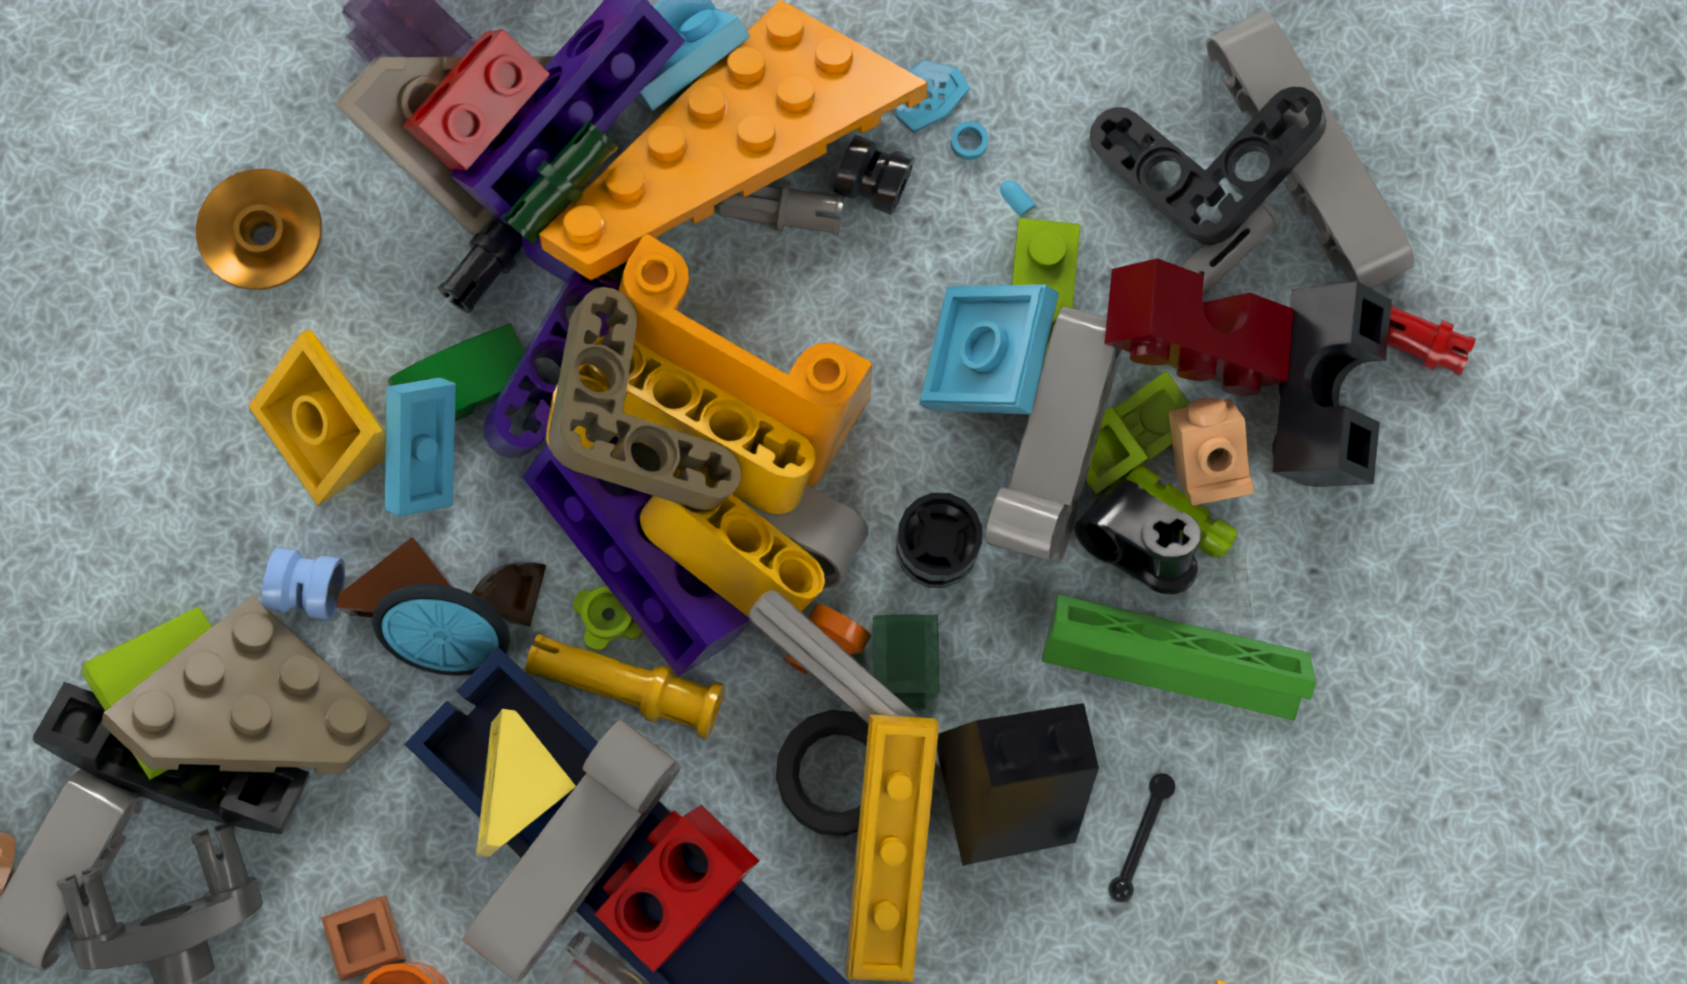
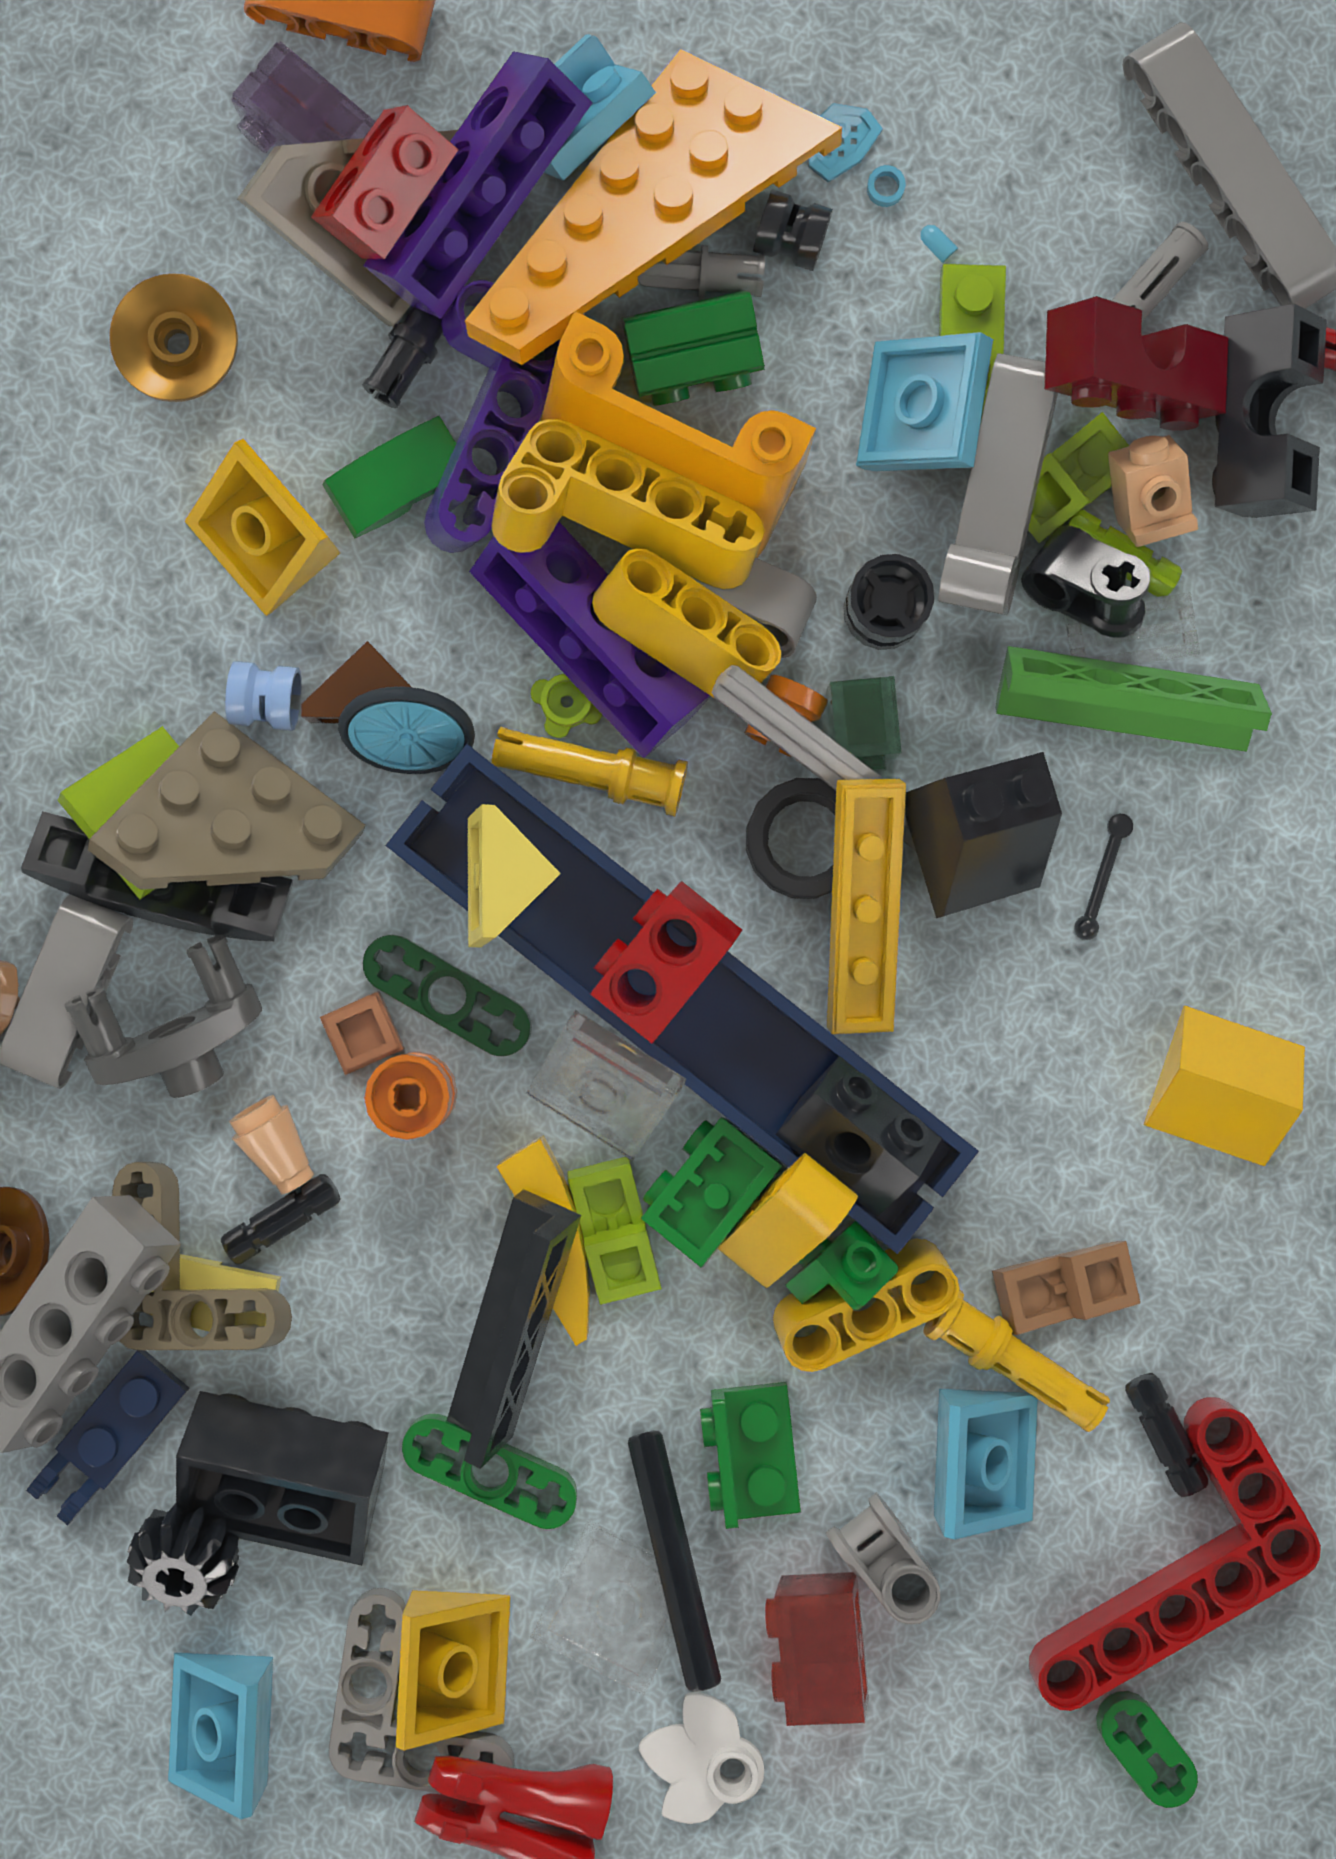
camera: 10 degrees left, 10 degrees up
(406, 890) = (414, 958): none -> dark green beam
(419, 446) = (364, 548): medium azure plate -> none
(513, 590) = (471, 685): dark brown tile -> none
(560, 181) = (480, 263): dark green pin -> none
(573, 851) = (563, 934): light grey beam -> none
(604, 419) = (553, 503): dark tan beam -> none
(766, 276) = (693, 346): none -> green brick
(1201, 185) = (1126, 214): black beam -> none

